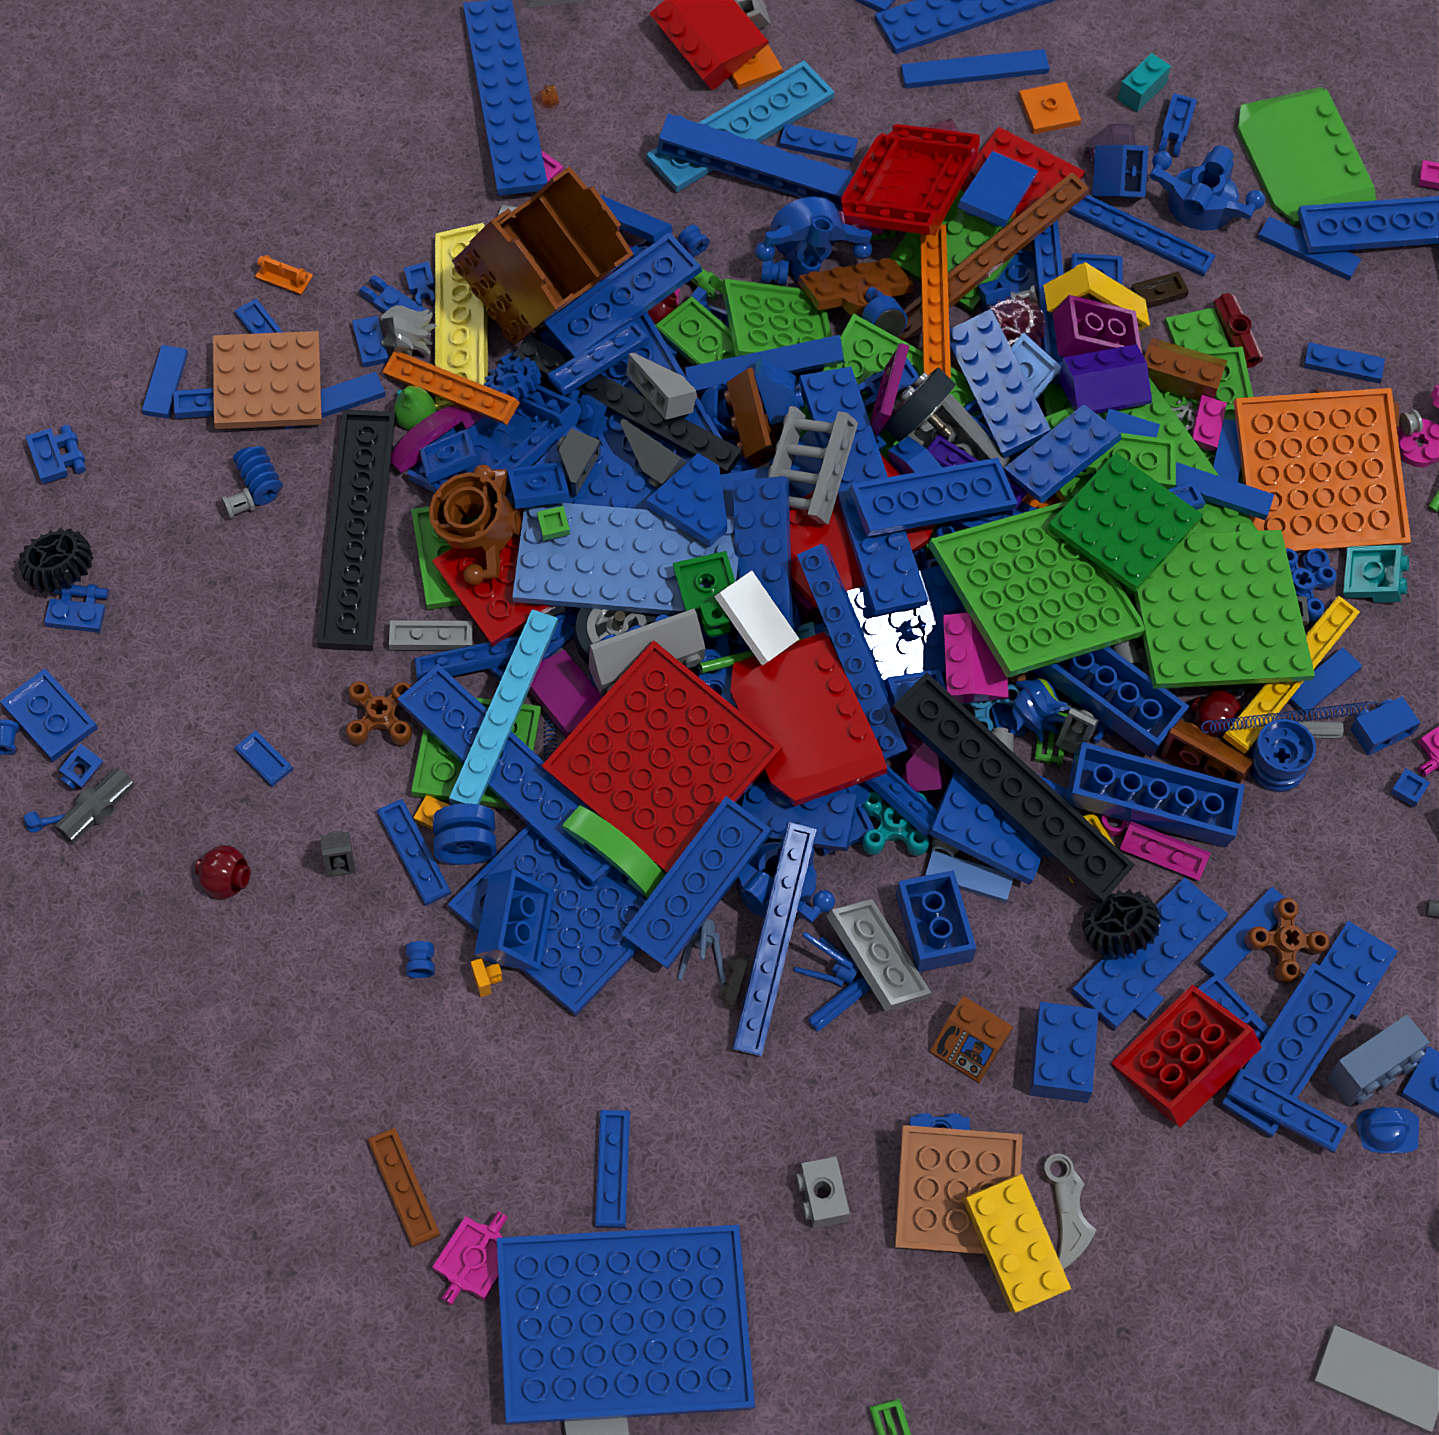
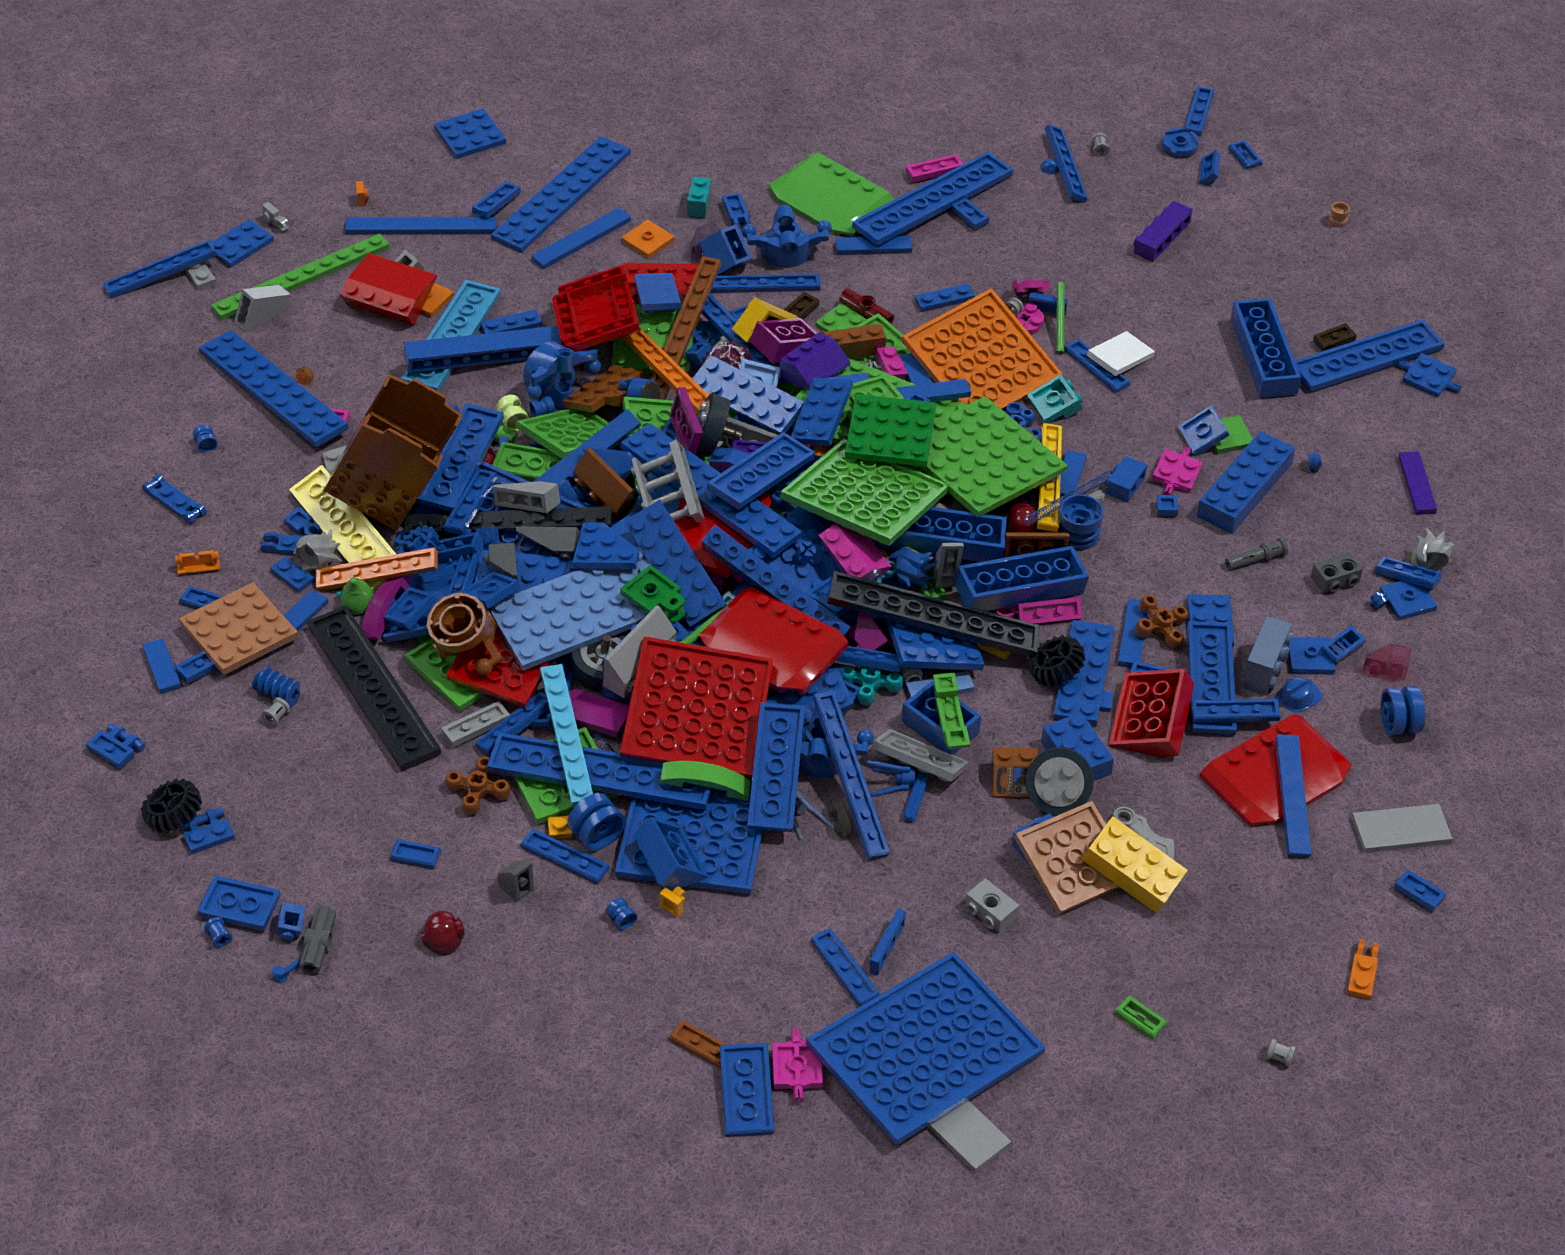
camera: 30 degrees left, 15 degrees down
(312, 182) = (174, 499): none -> blue plate
(392, 121) = (204, 438): none -> blue wheel
(401, 1254) = (746, 1089): none -> blue tile
(553, 523) = (520, 605): bright green plate -> none
(677, 1167) = (887, 942): none -> blue tile
(736, 260) = (512, 410): none -> yellowish green wheel
(756, 618) = (699, 594): white tile -> none
(939, 927) = (949, 711): none -> bright green slope
(1006, 1085) = (1059, 780): none -> wheel
(1274, 1262) = (1293, 796): none -> blue tile
(1285, 1217) = (1250, 776): none -> red slope

